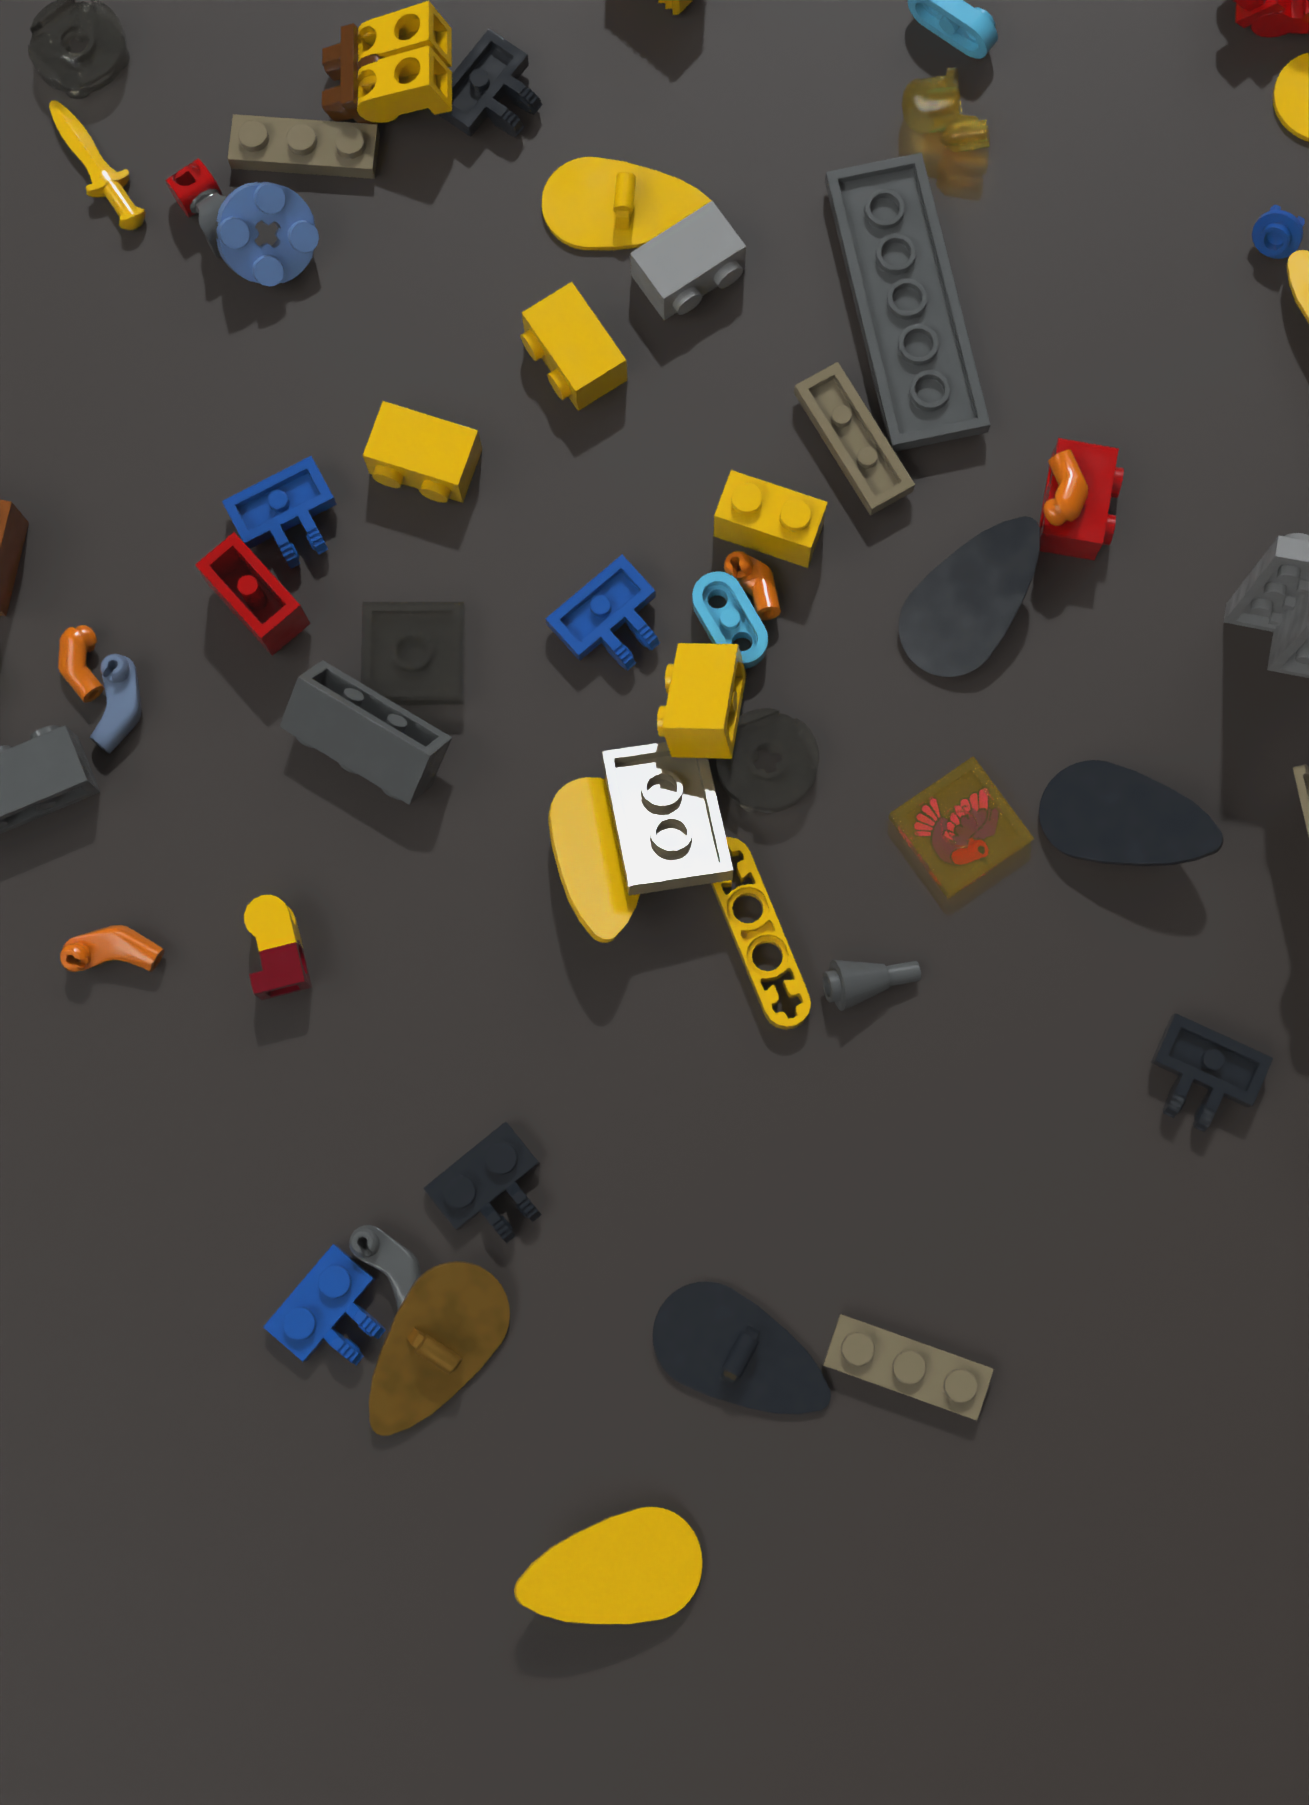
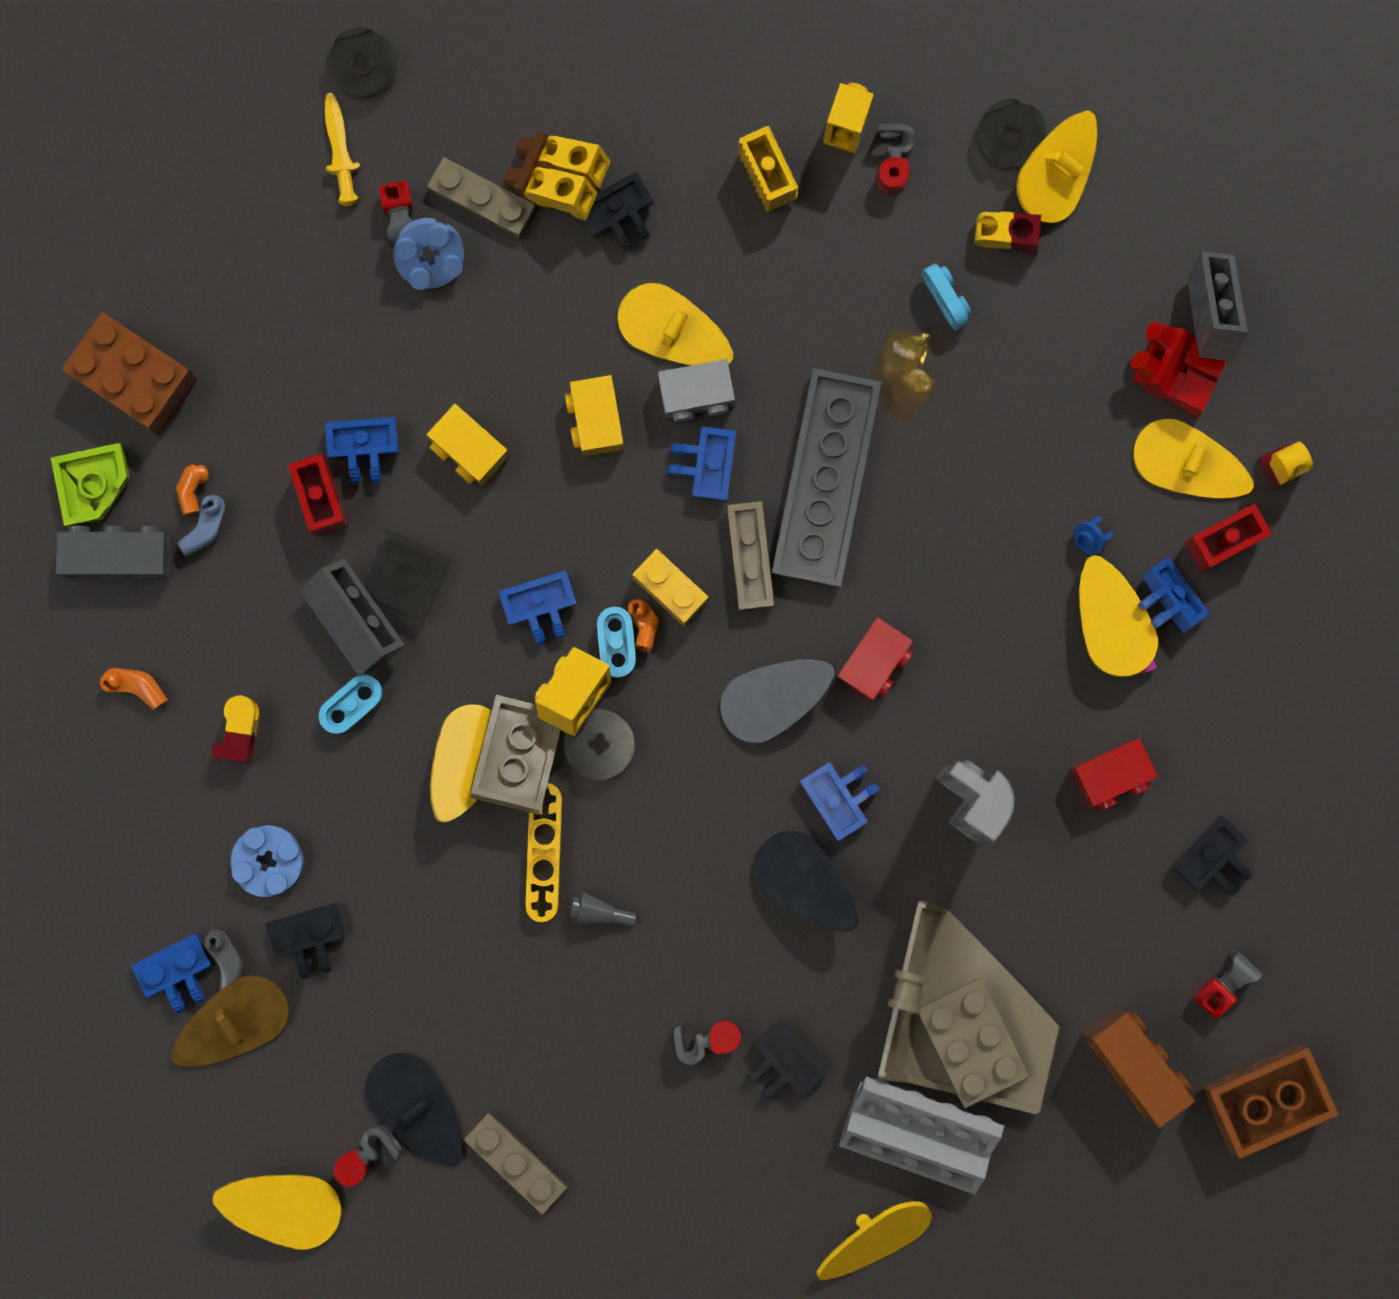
camera: 15 degrees right, 5 degrees up
(366, 1085) = (276, 879): none -> medium blue plate
(410, 849) = (351, 704): none -> medium azure plate
(688, 1467) = (354, 1164): none -> leg
(752, 347) = (712, 464): none -> blue hinge
(960, 827) = (703, 840): clear yellow tile -> none
(1071, 491) = (866, 659): orange arm -> none
(1105, 1075) = (721, 1039): none -> leg
(1110, 700) = (834, 800): none -> blue hinge

